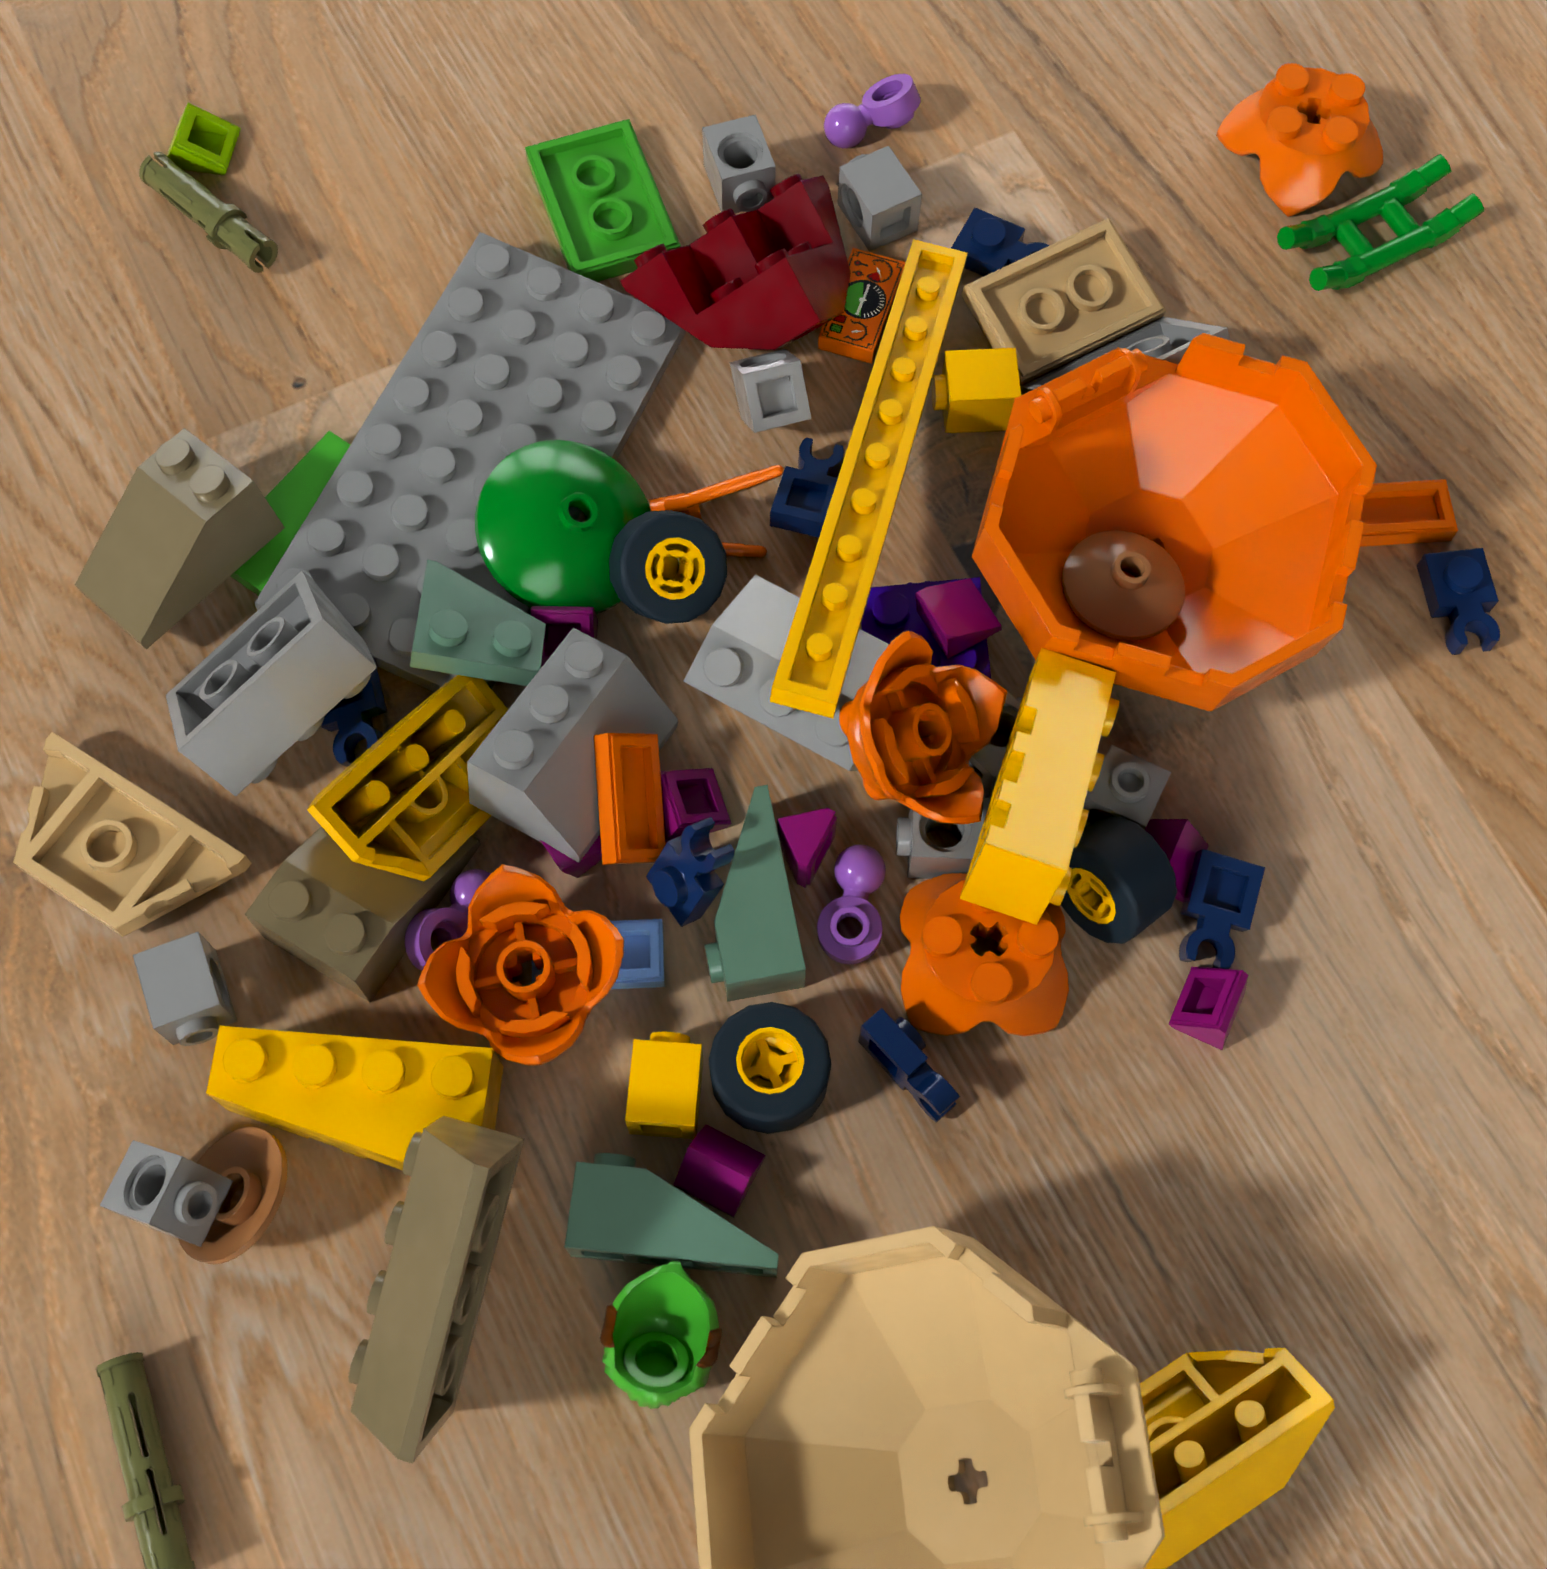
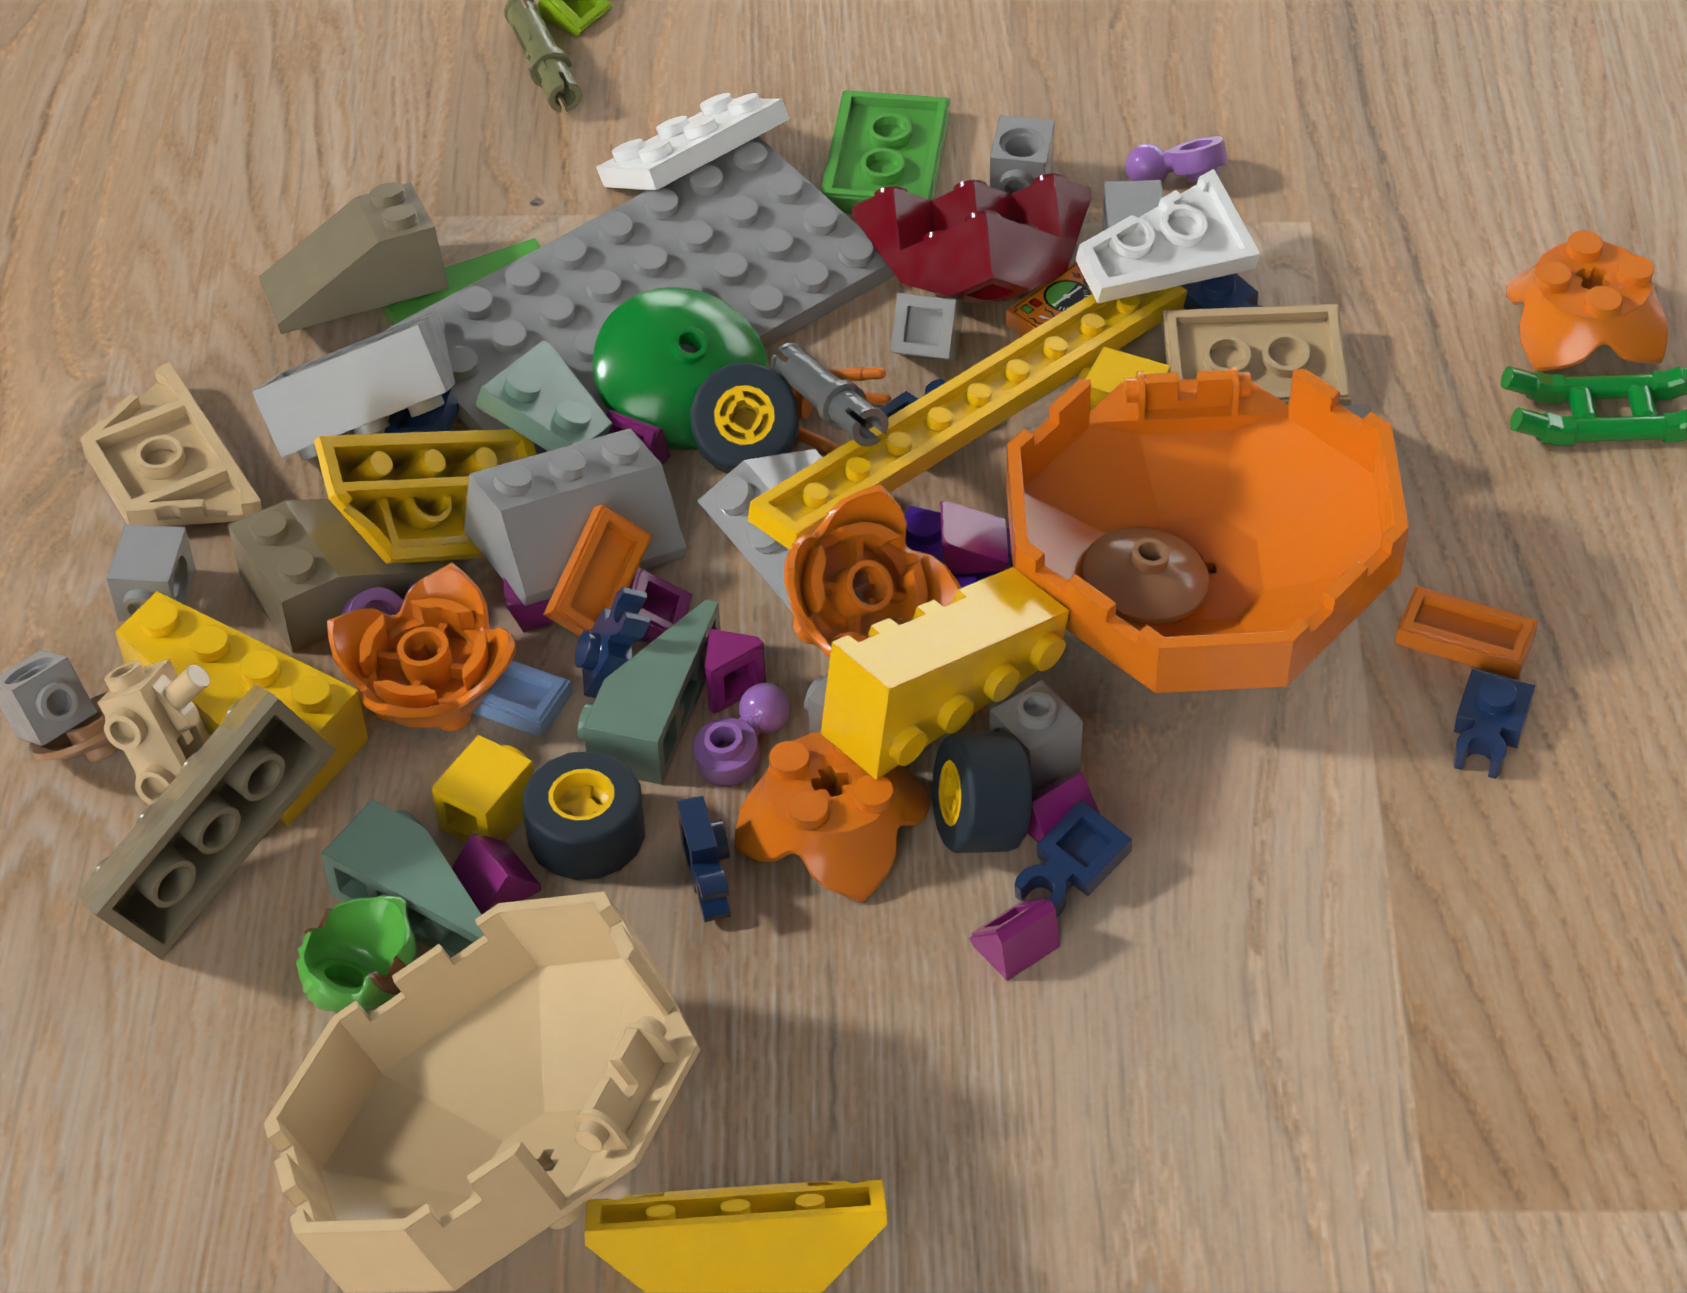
camera: 30 degrees right, 20 degrees down
(326, 1192) = (154, 720): none -> tan brick
(425, 266) = (691, 142): none -> white plate
(777, 530) = (838, 401): none -> dark grey pin
(943, 215) = (1175, 244): none -> white wing

